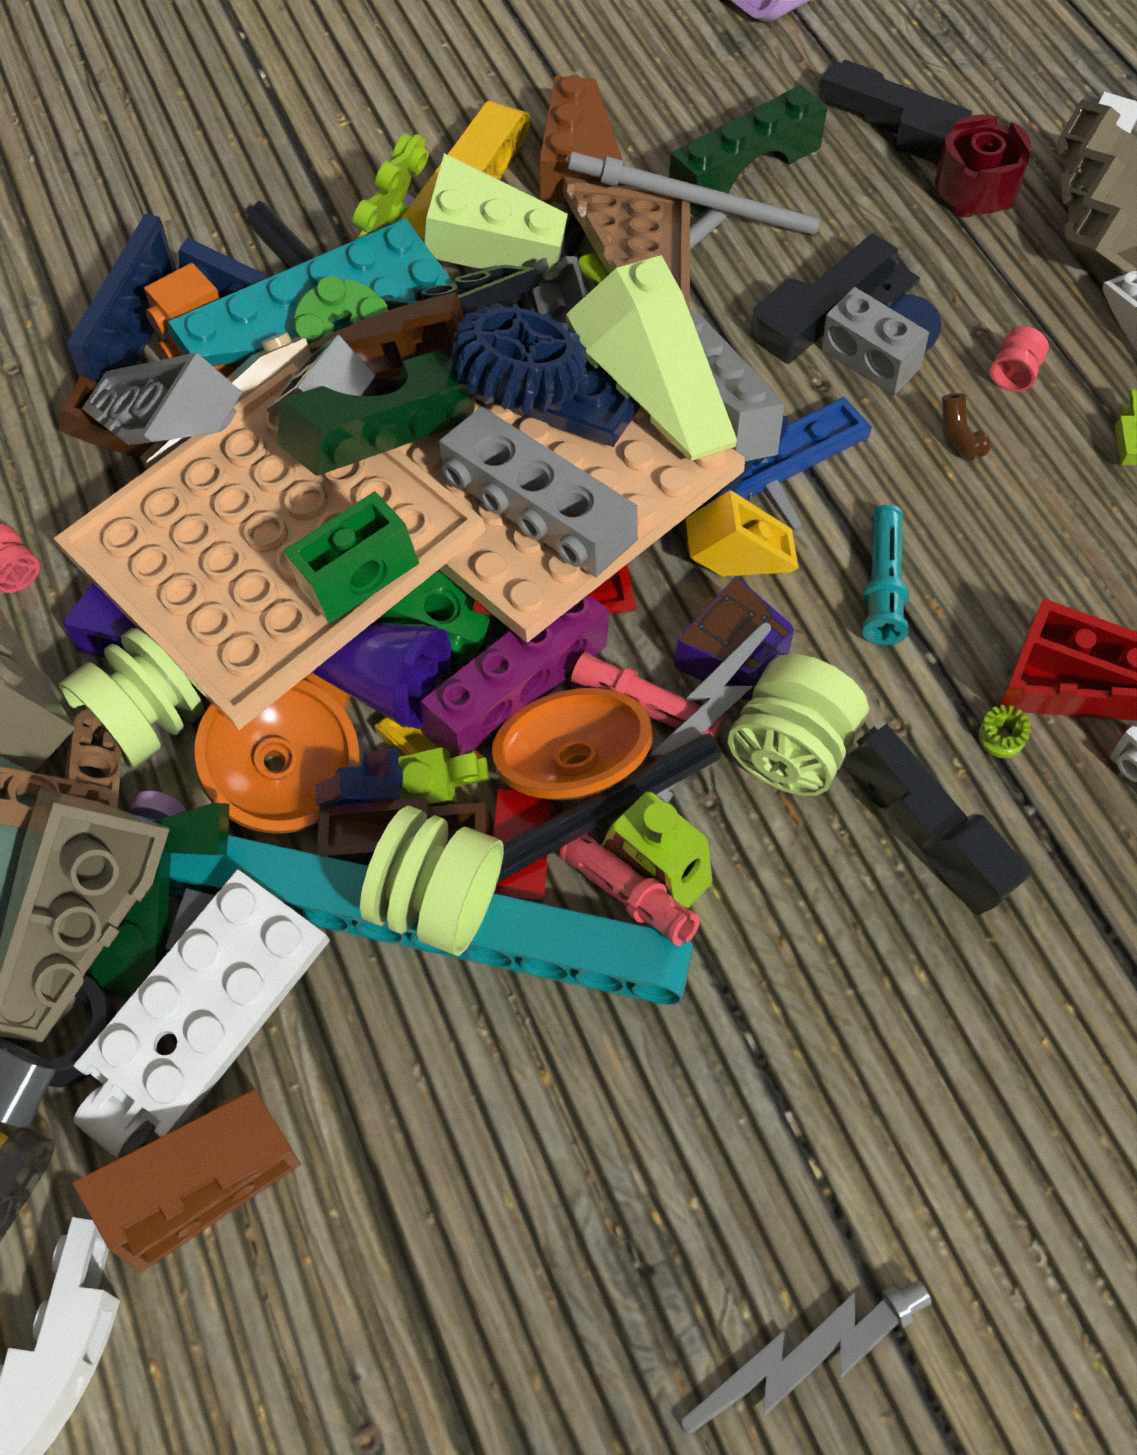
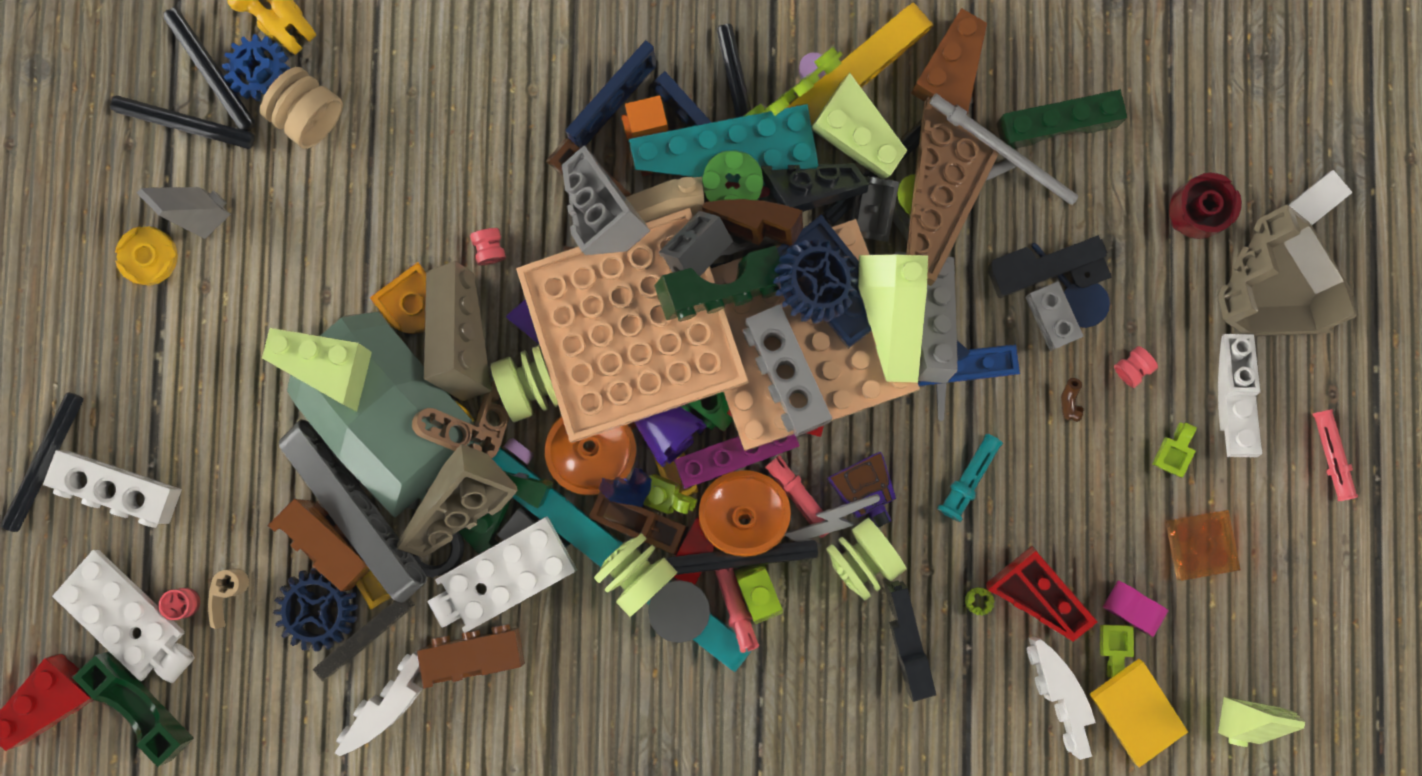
camera: 25 degrees right, 25 degrees up
(352, 556) = (663, 386): green brick -> none
(536, 927) = (679, 611): none -> dark grey tile
(739, 539) = (901, 422): yellow slope -> none
(912, 115) = (1194, 147): black piece -> none

